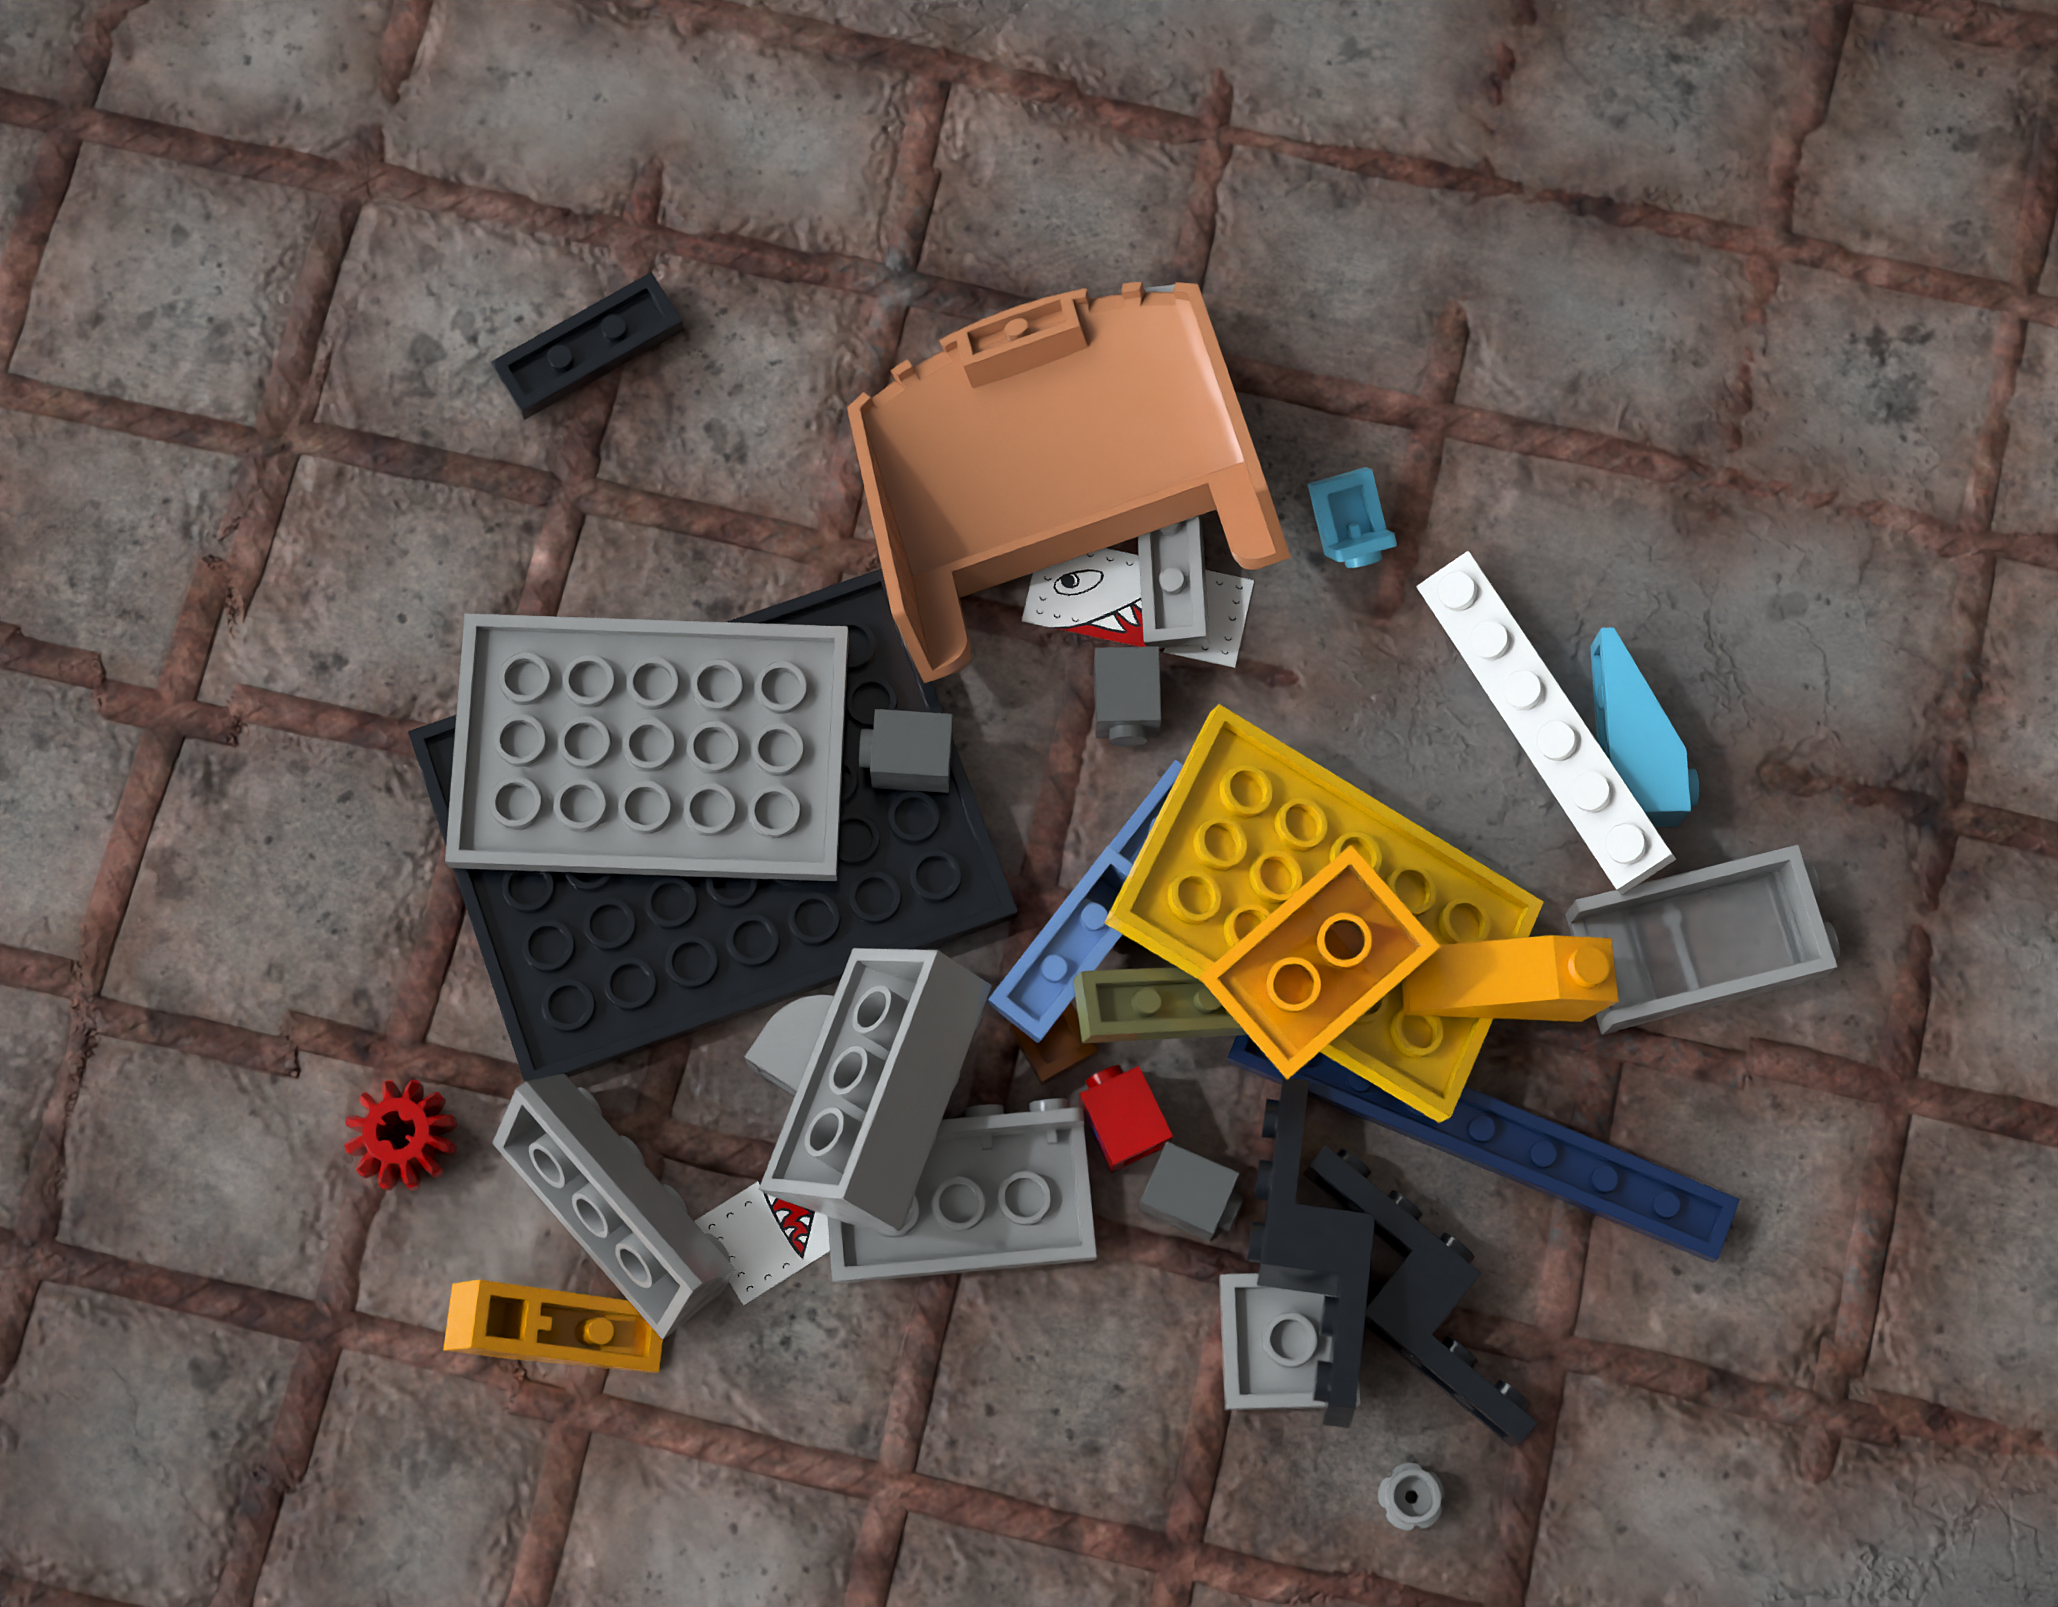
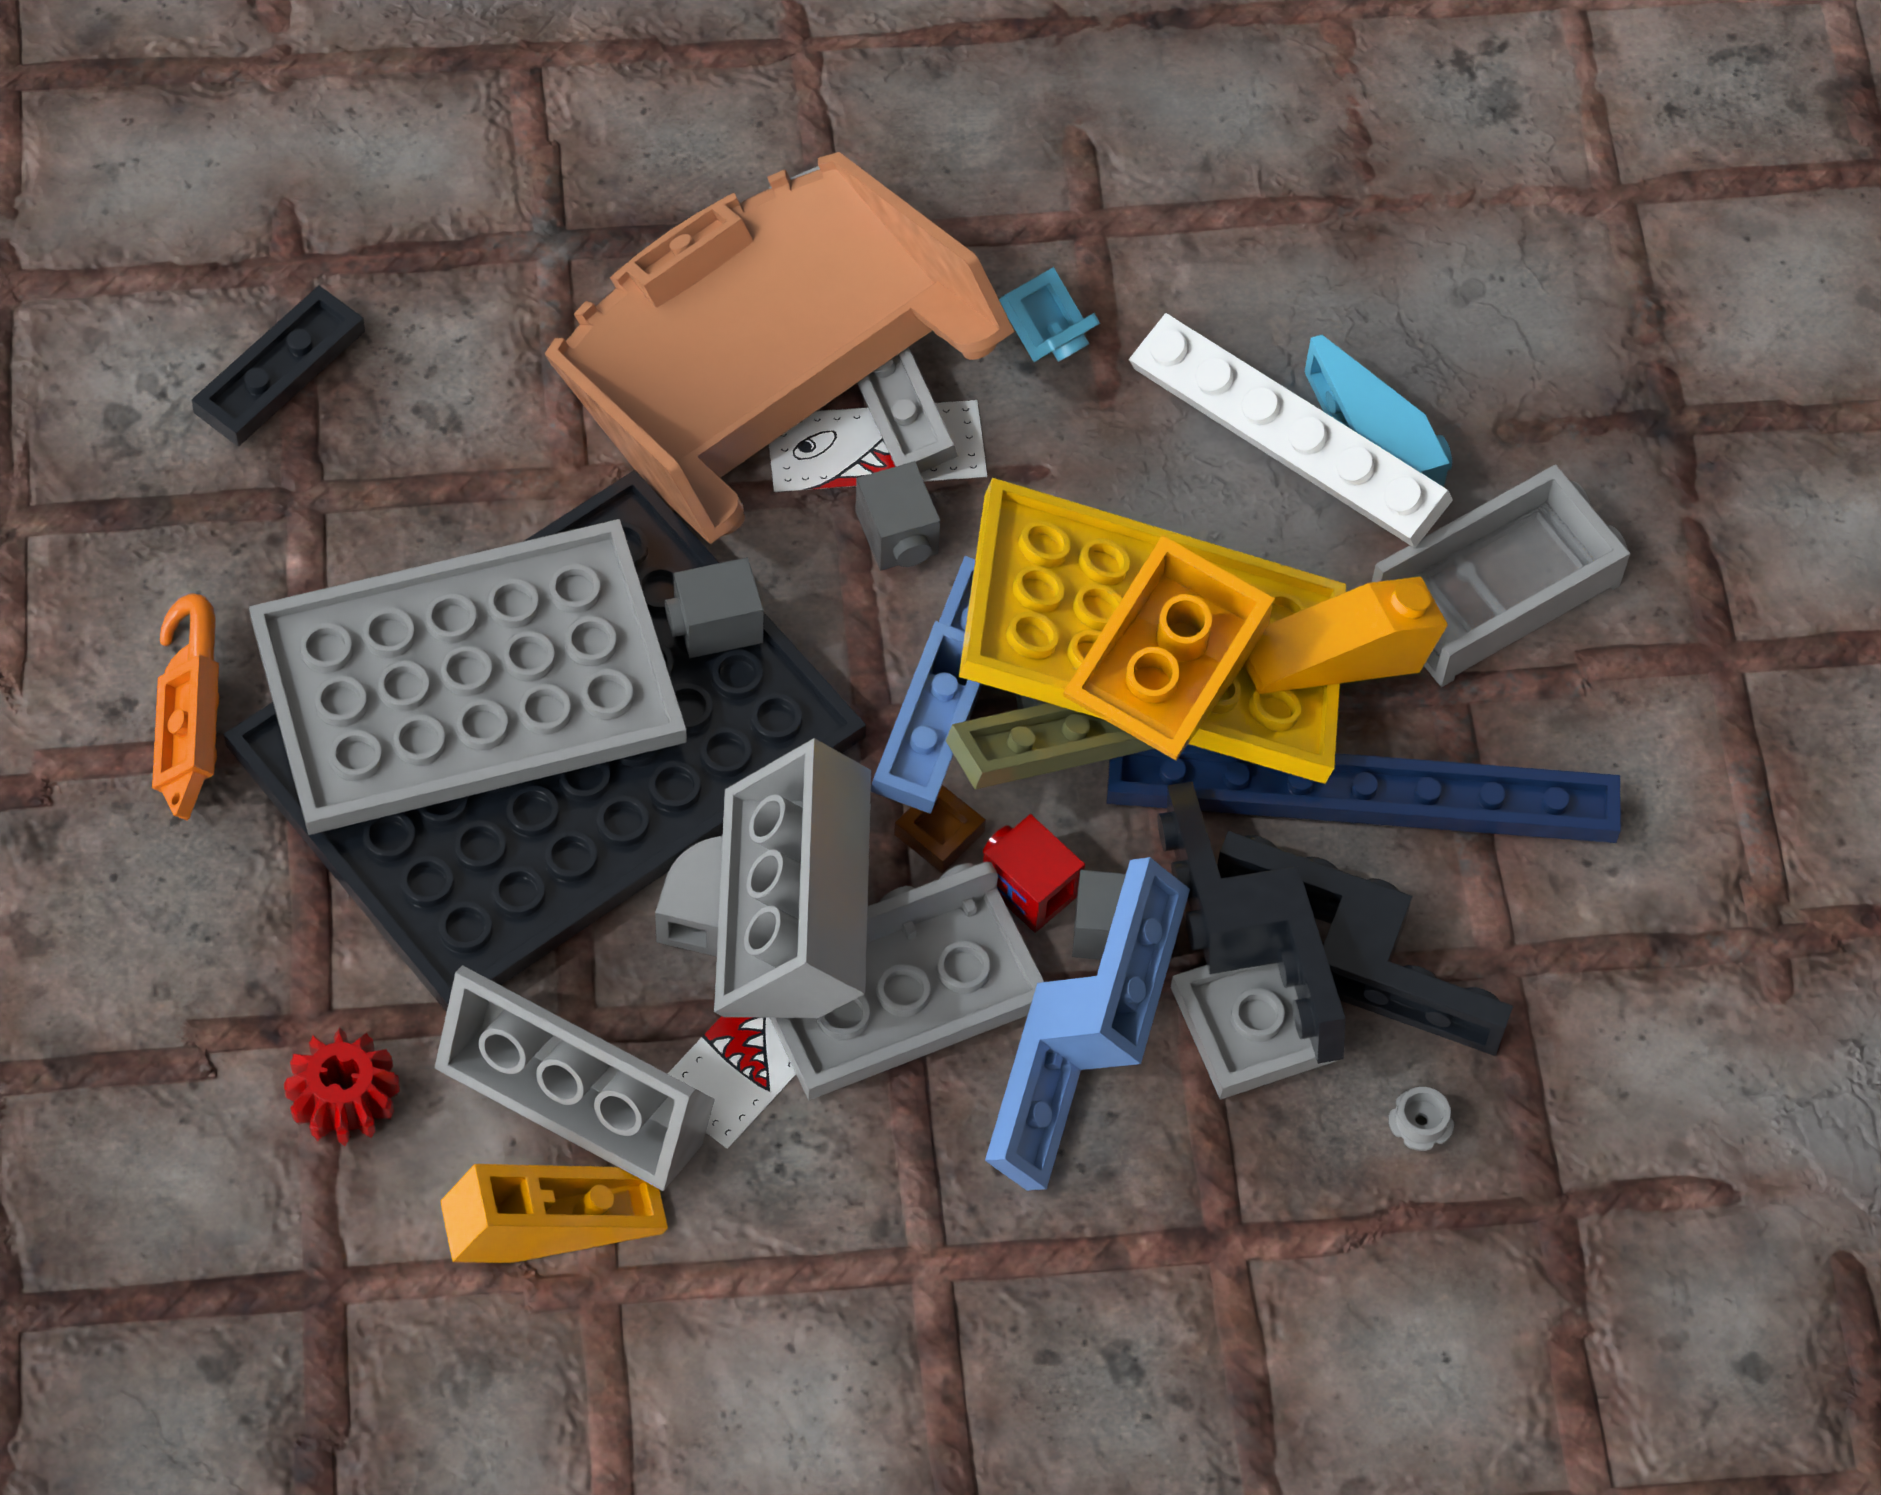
camera: 20 degrees left, 15 degrees down
(384, 692) = (187, 708): none -> orange plate
(1121, 1308) = (1087, 1024): none -> medium blue bracket

